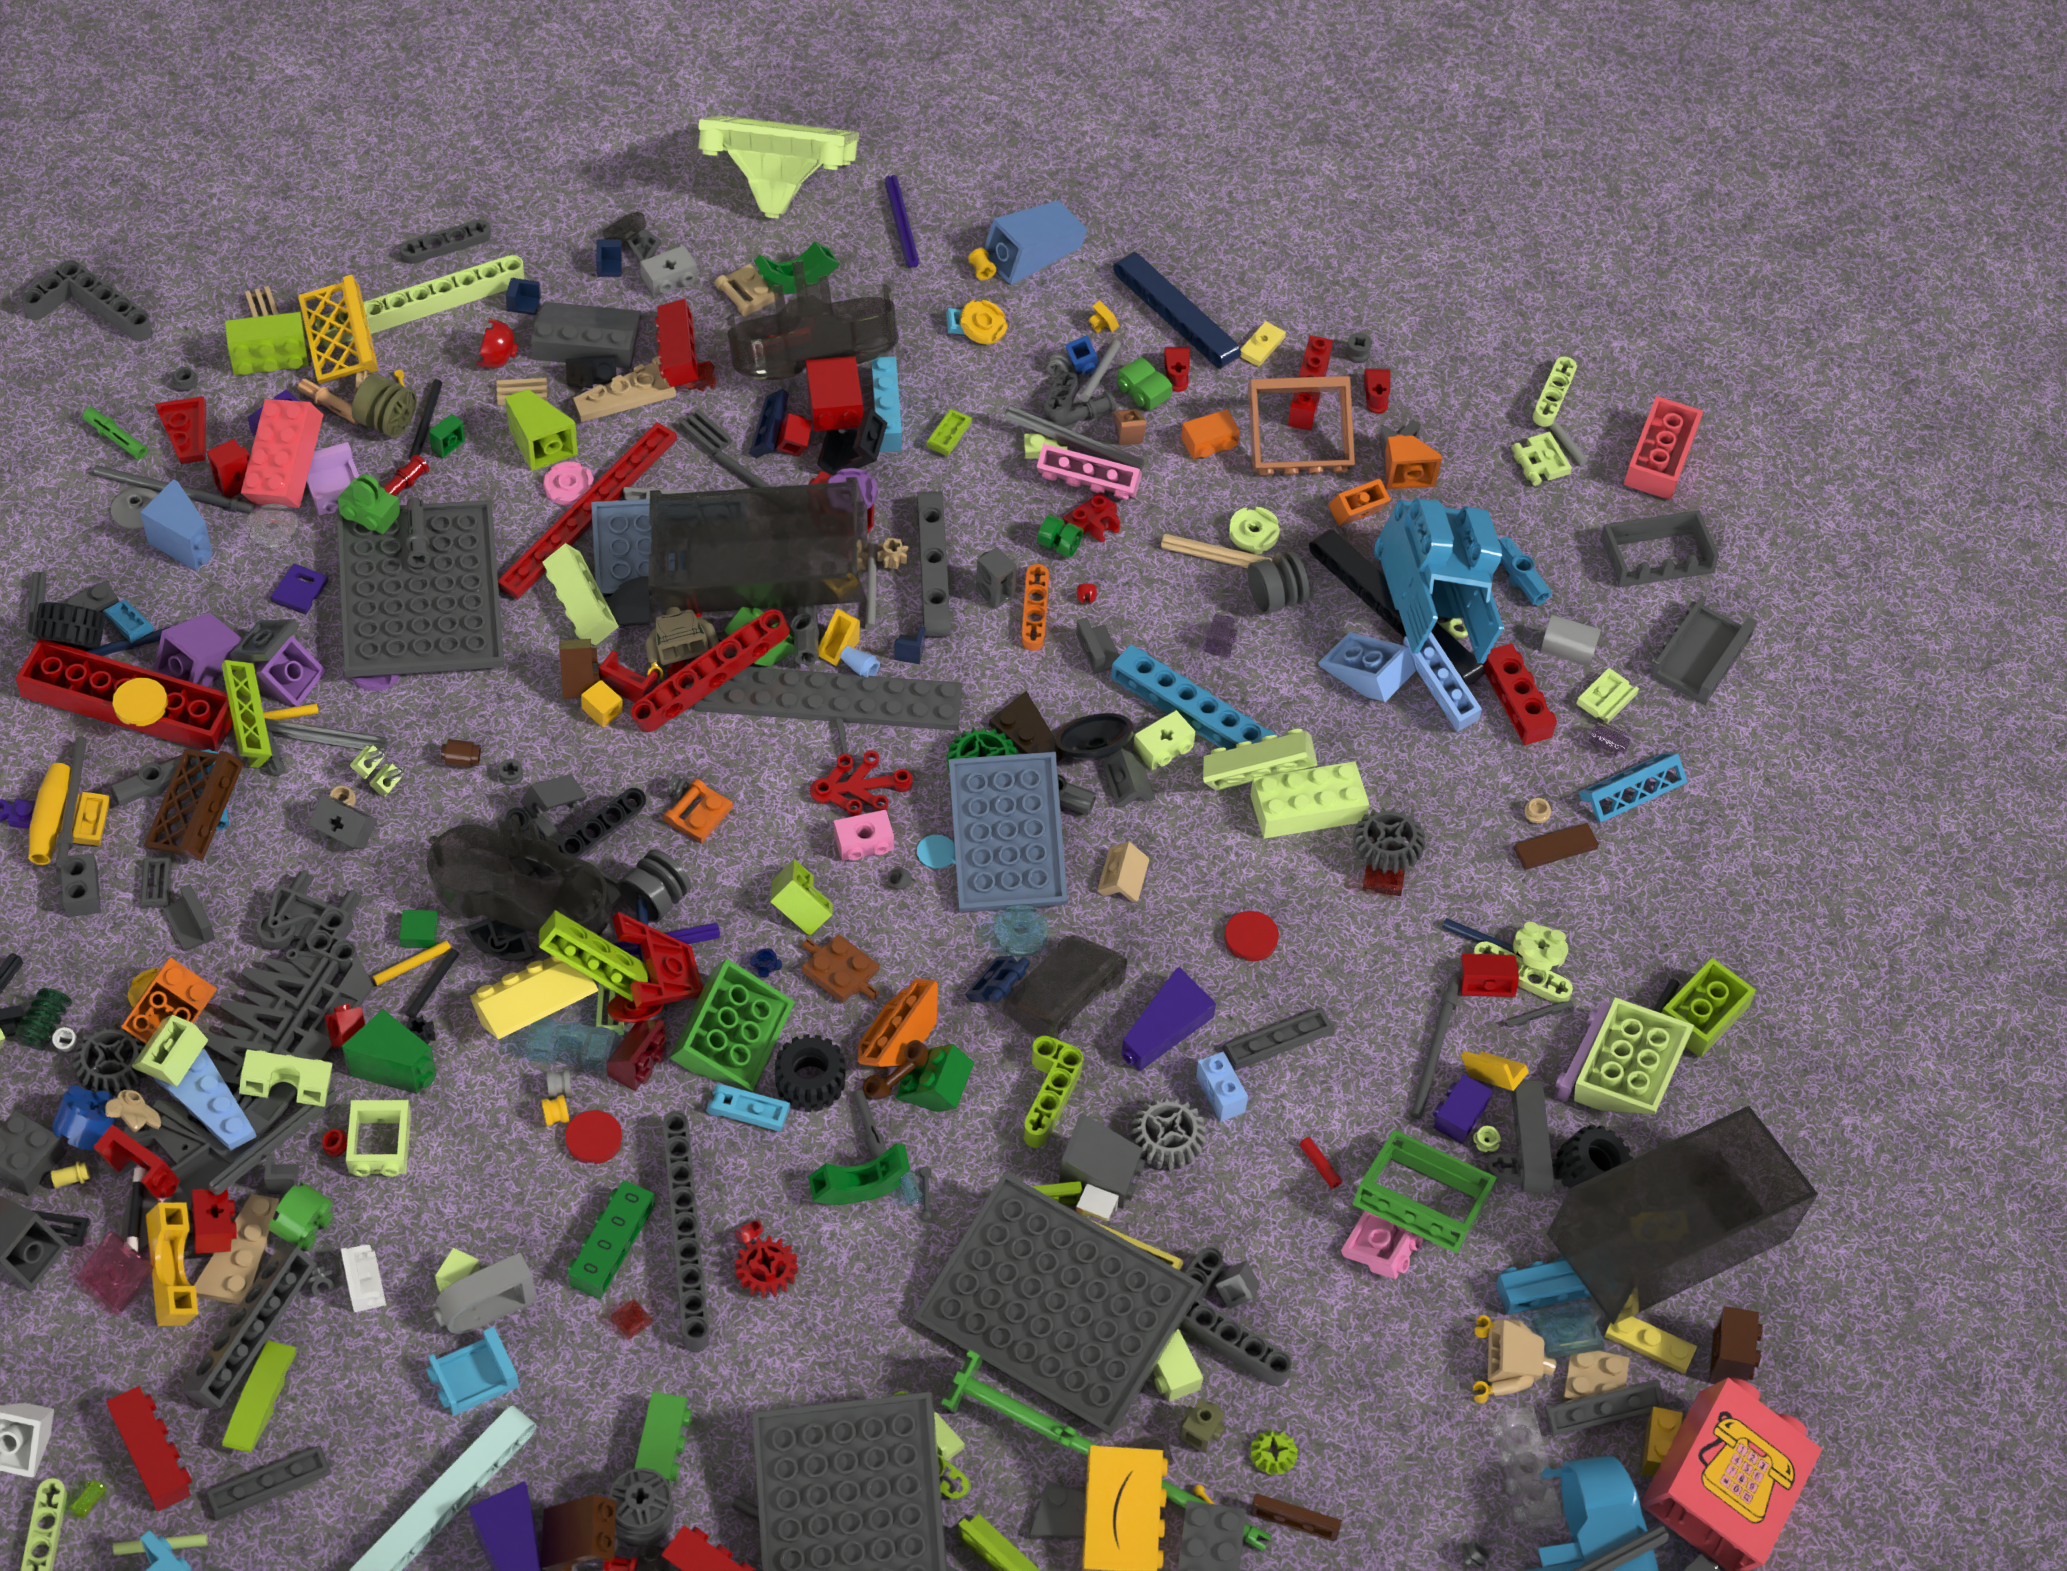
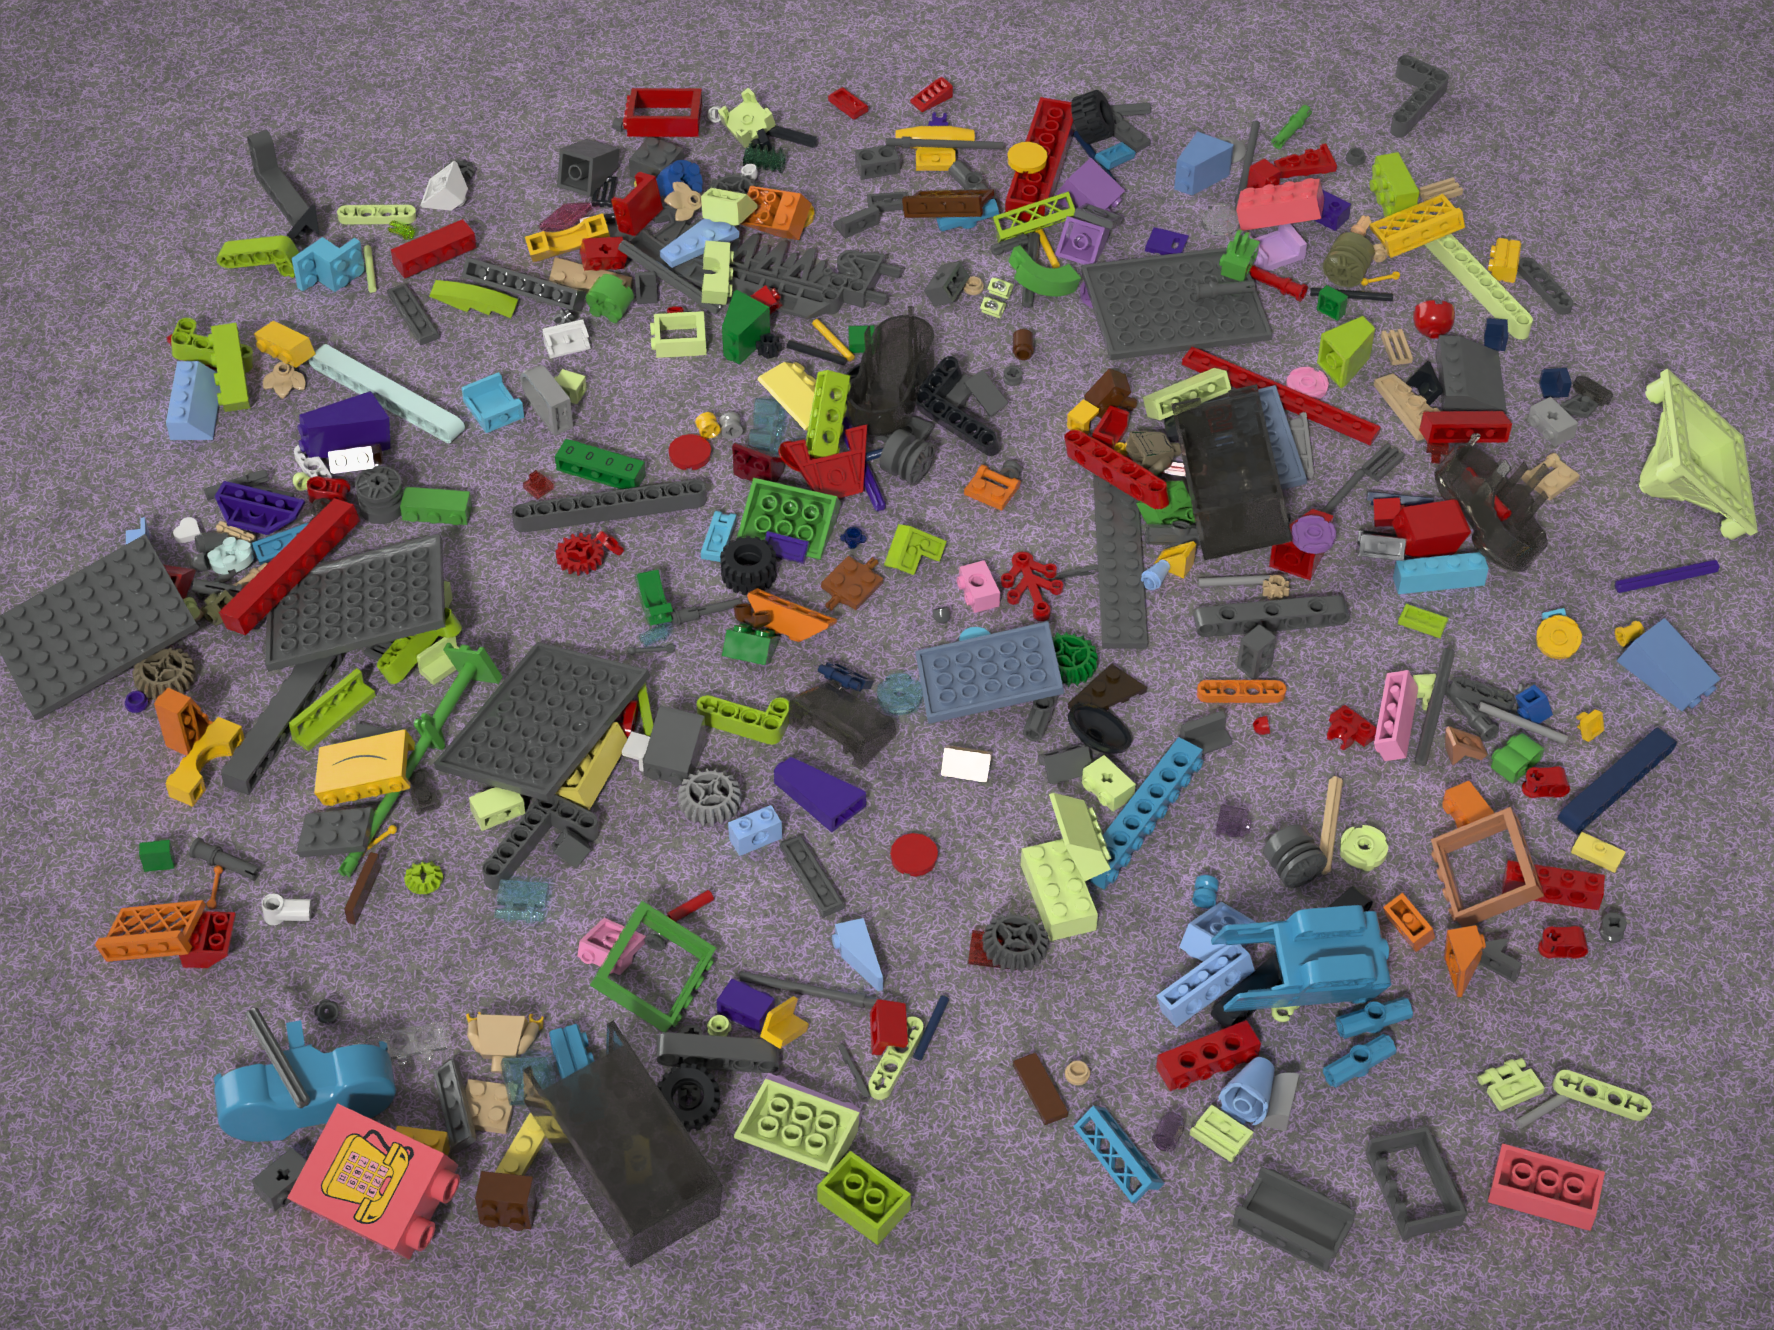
camera: 90 degrees right, 5 degrees down
(354, 722) = (1040, 279): none -> bright green arch
(401, 266) = (1505, 259): none -> yellow brick
(776, 1033) = (788, 547): none -> dark purple tile
(817, 262) = (1572, 502): green arch -> none
(910, 648) = (1178, 608): dark blue panel -> none
(1057, 535) = (1319, 700): green wheel -> none
(1202, 1425) = (441, 823): olive brick -> none
(1304, 1339) = (521, 894): none -> clear light blue plate
(1306, 668) = (1205, 887): none -> dark azure wheel
(1383, 996) = (857, 950): none -> light blue slope
(1534, 935) = (929, 1057): yellowish green plate -> none
(1562, 660) = (1249, 1092): none -> light blue cone

